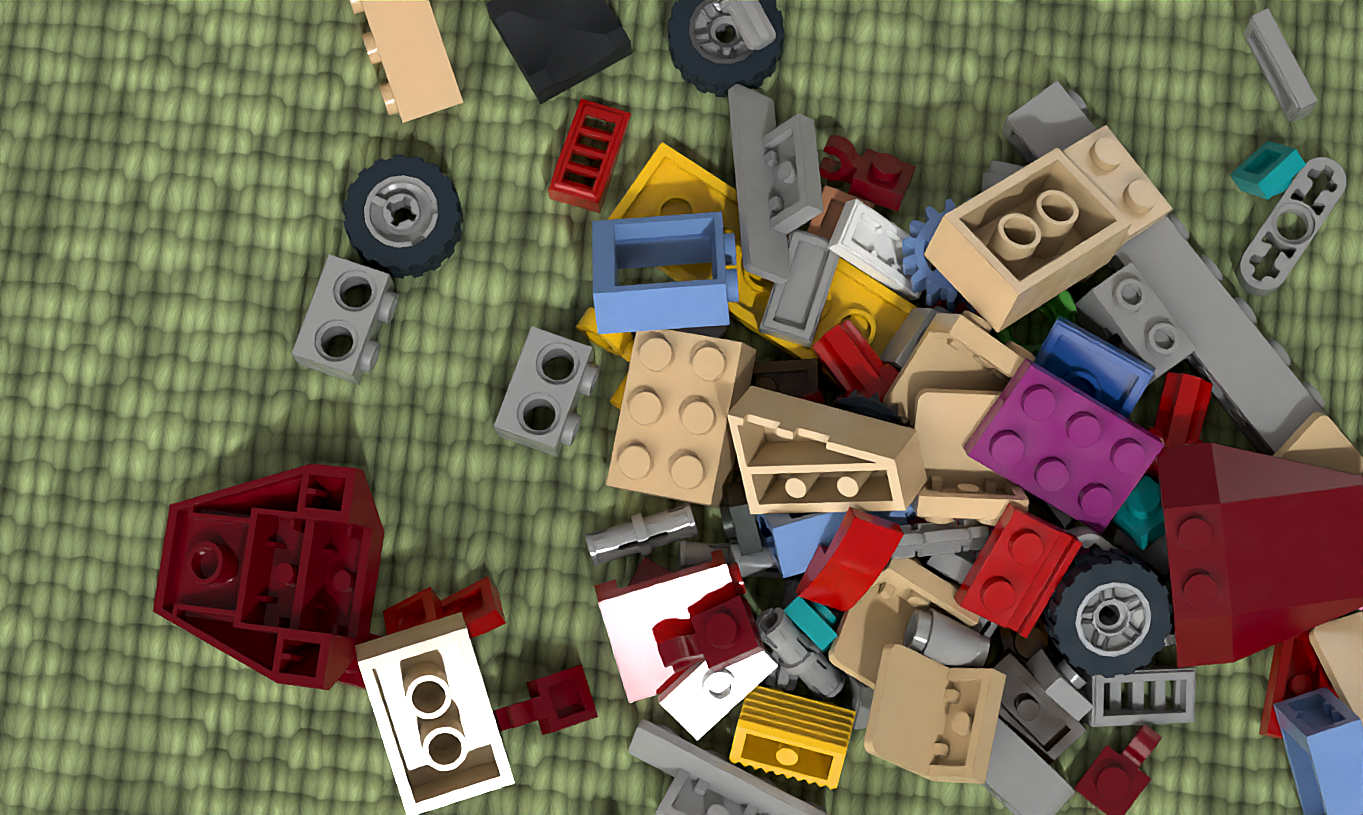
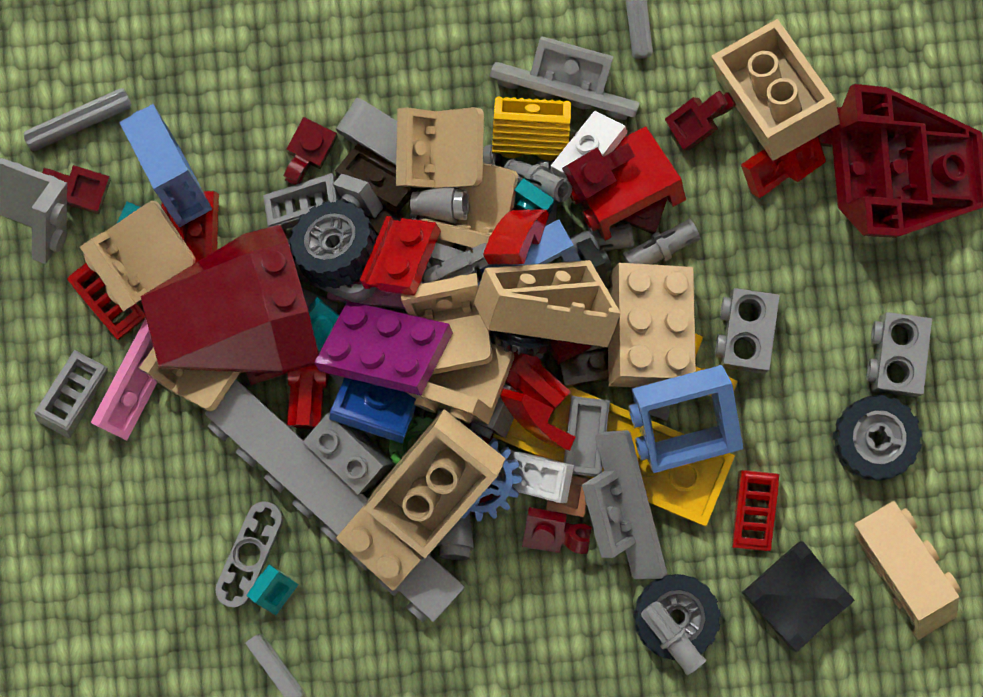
camera: 165 degrees right, 5 degrees up
(866, 312) = (534, 418): none -> red slope

